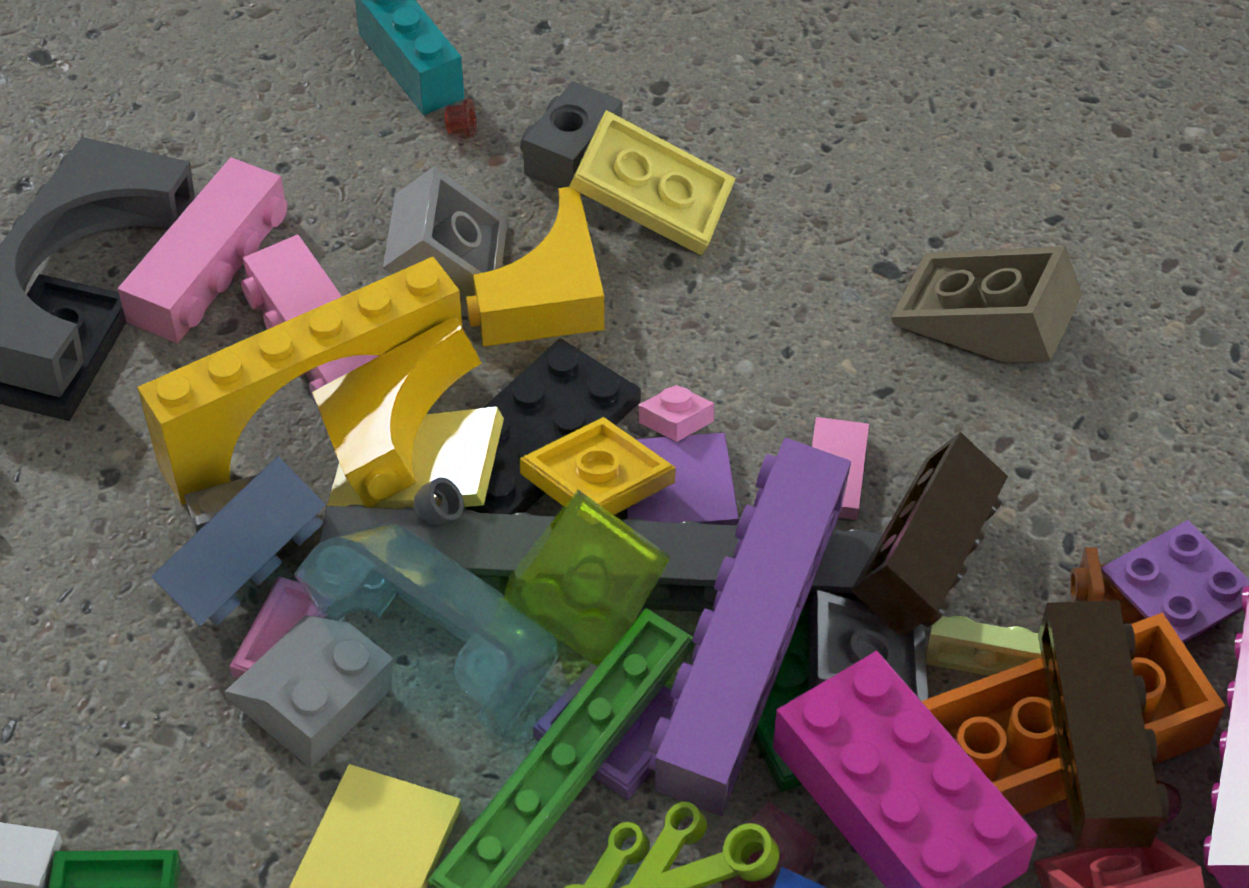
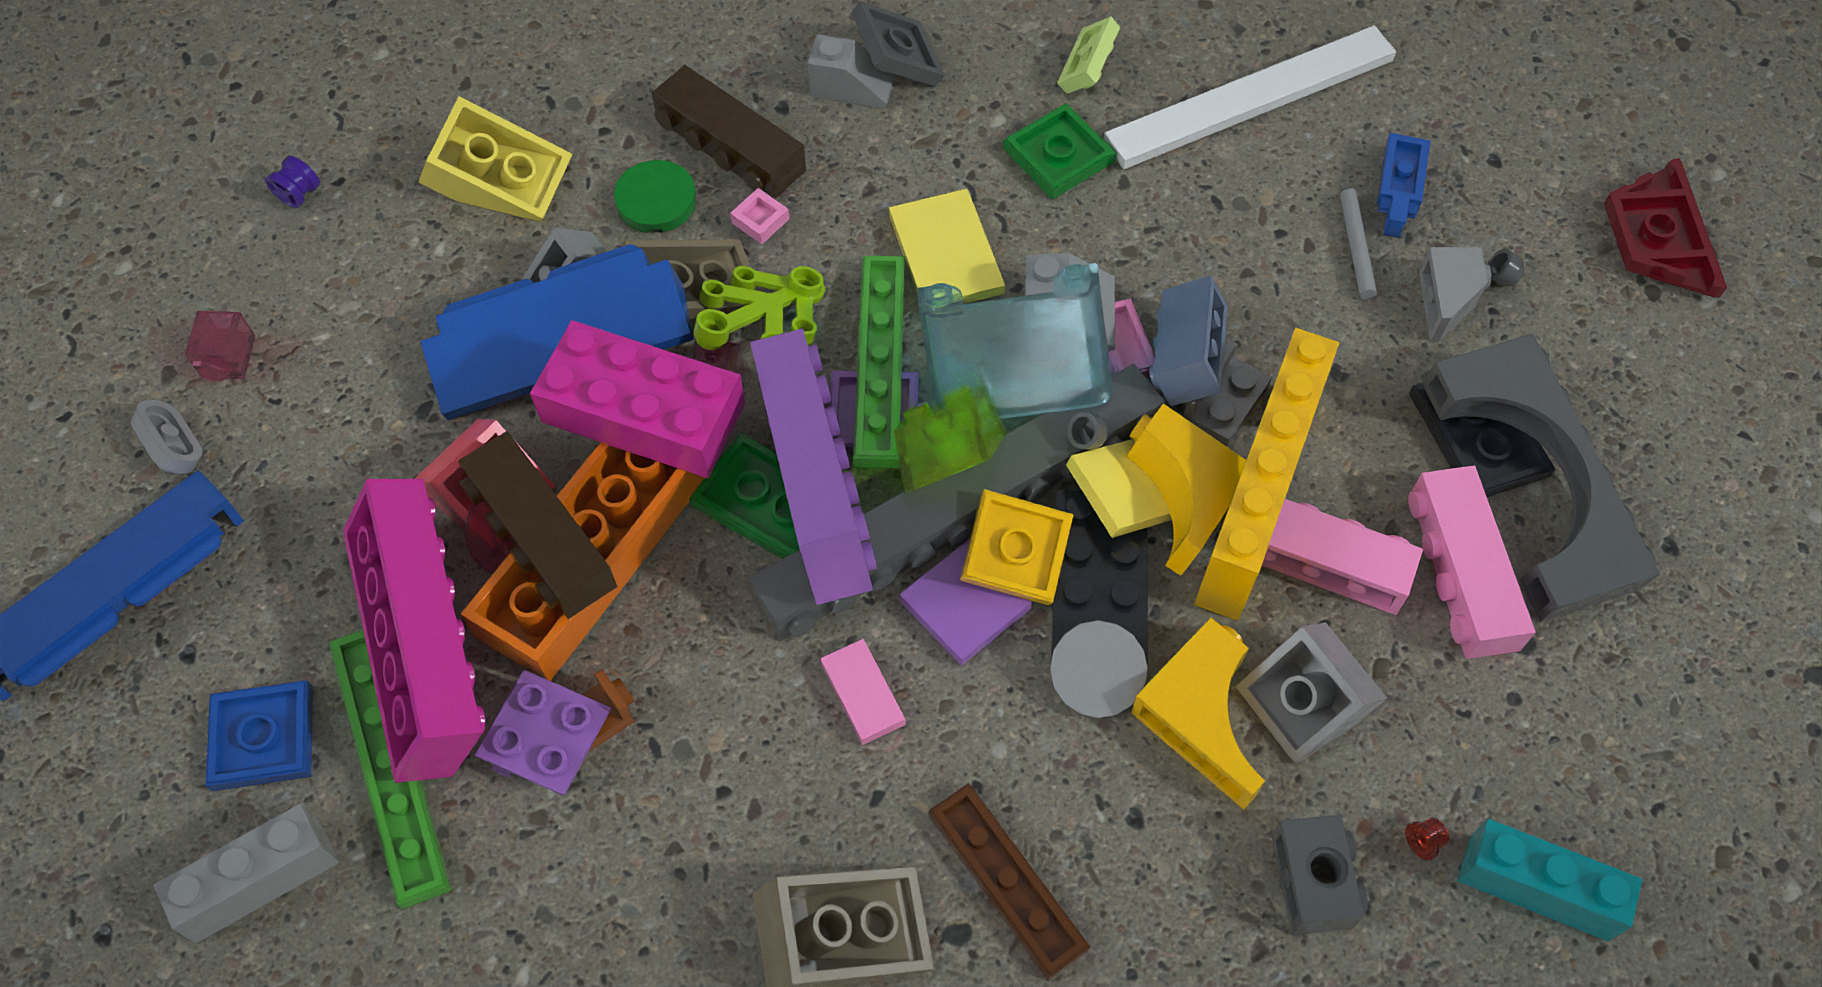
camera: 145 degrees right, 10 degrees up
(610, 348) = (1098, 668): none -> light grey tile
(653, 182) = (1204, 859): light yellow tile -> none
(676, 413) = (1009, 652): bright pink plate -> none
(818, 276) = (1009, 882): none -> reddish brown tile
(849, 630) = (735, 532): dark grey plate -> none
(931, 536) = (742, 637): dark brown brick -> none
(979, 647) = (669, 594): yellowish green plate -> none

